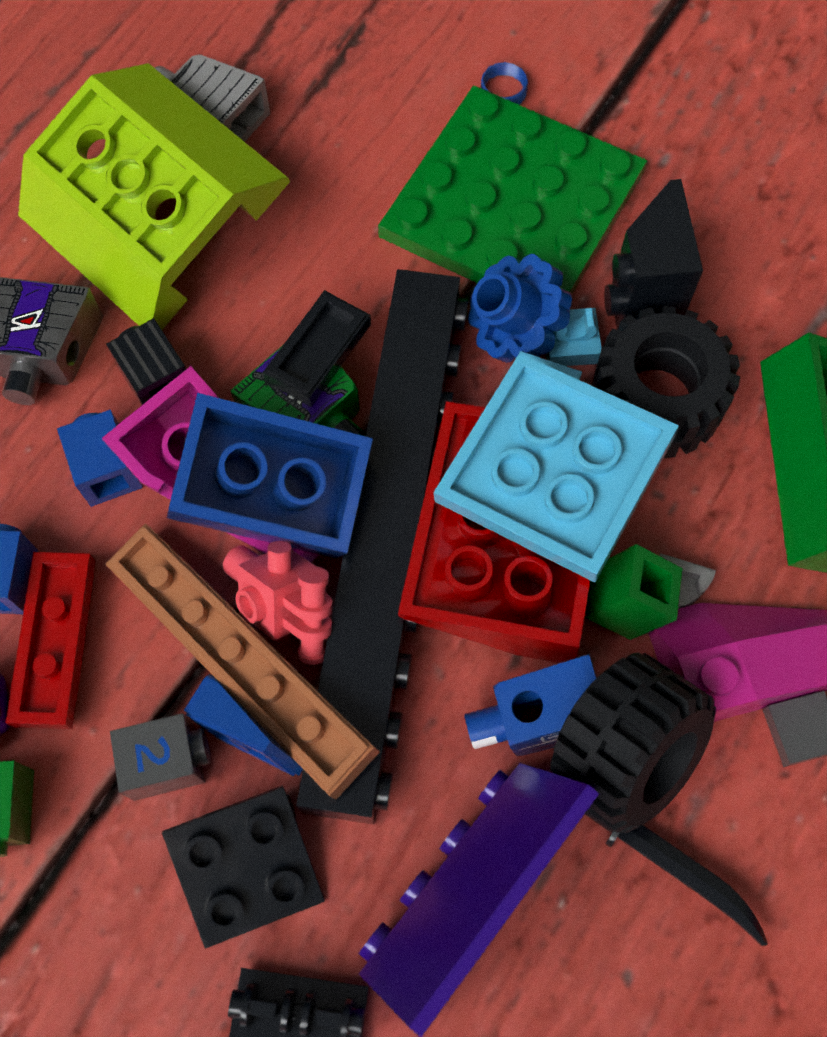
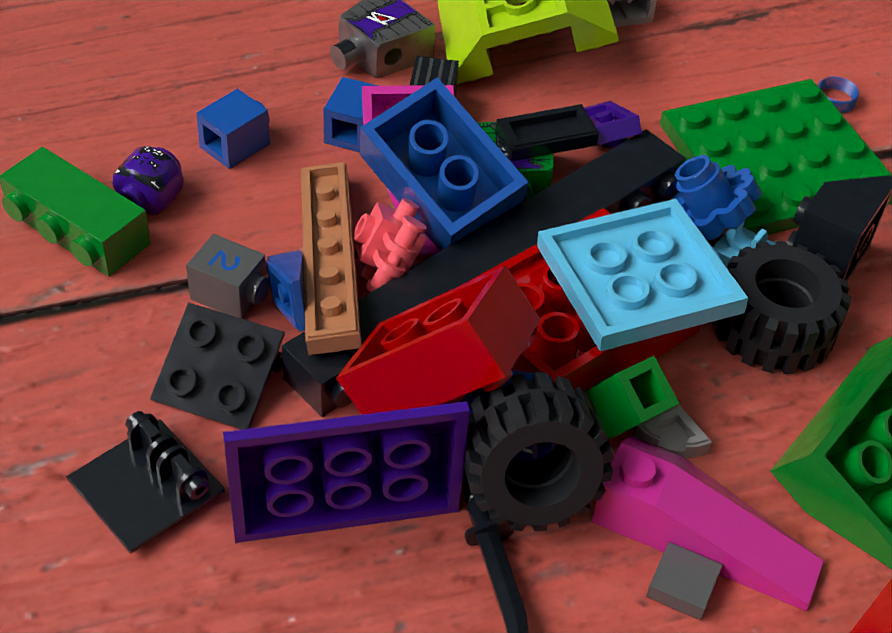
camera: 35 degrees right, 20 degrees down
(51, 641) = (228, 183): red plate -> none
(352, 280) = (613, 123): none -> dark purple plate
(479, 716) = (443, 347): none -> red brick

